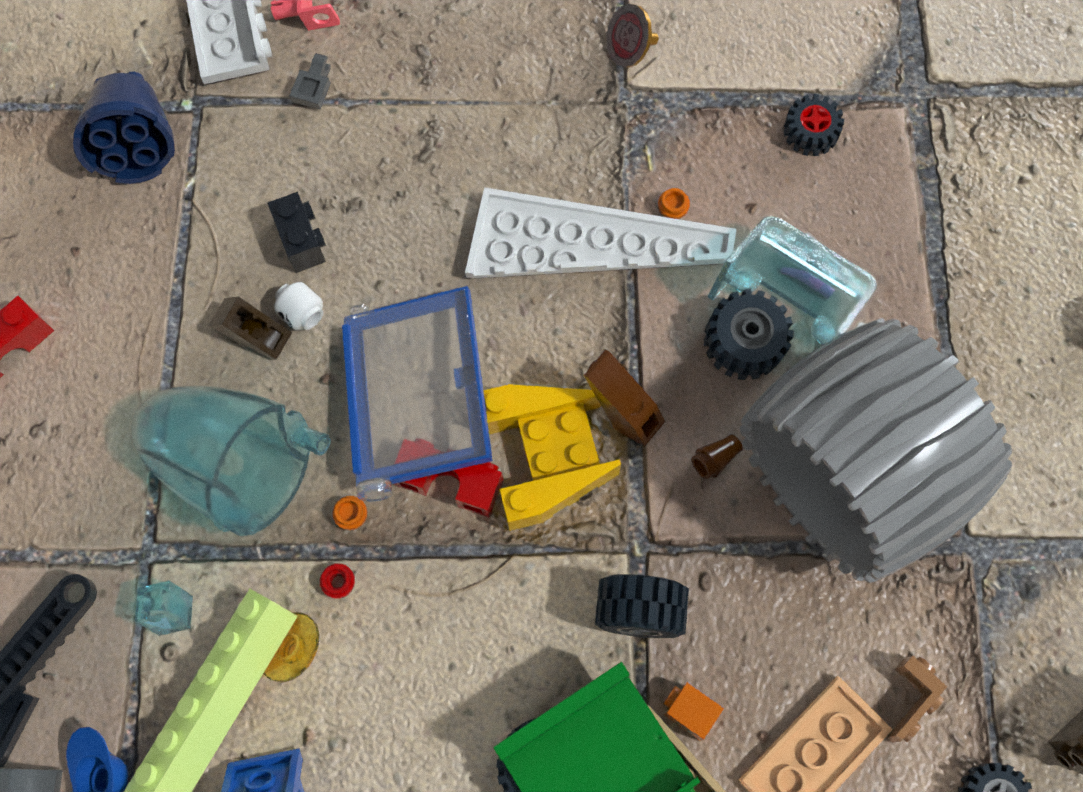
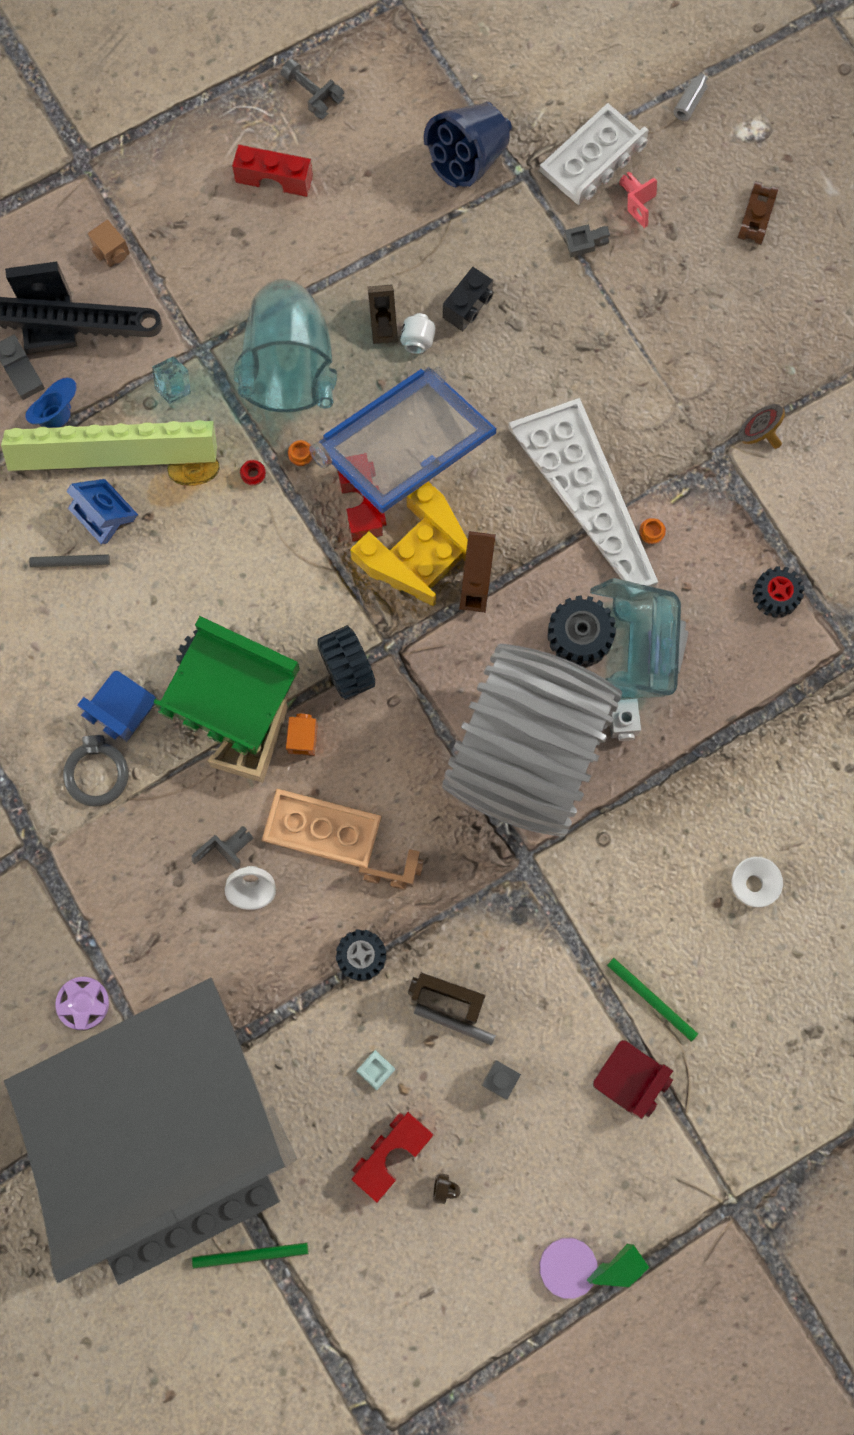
camera: 55 degrees right, 5 degrees up
(714, 457) = (478, 657): reddish brown cone -> none

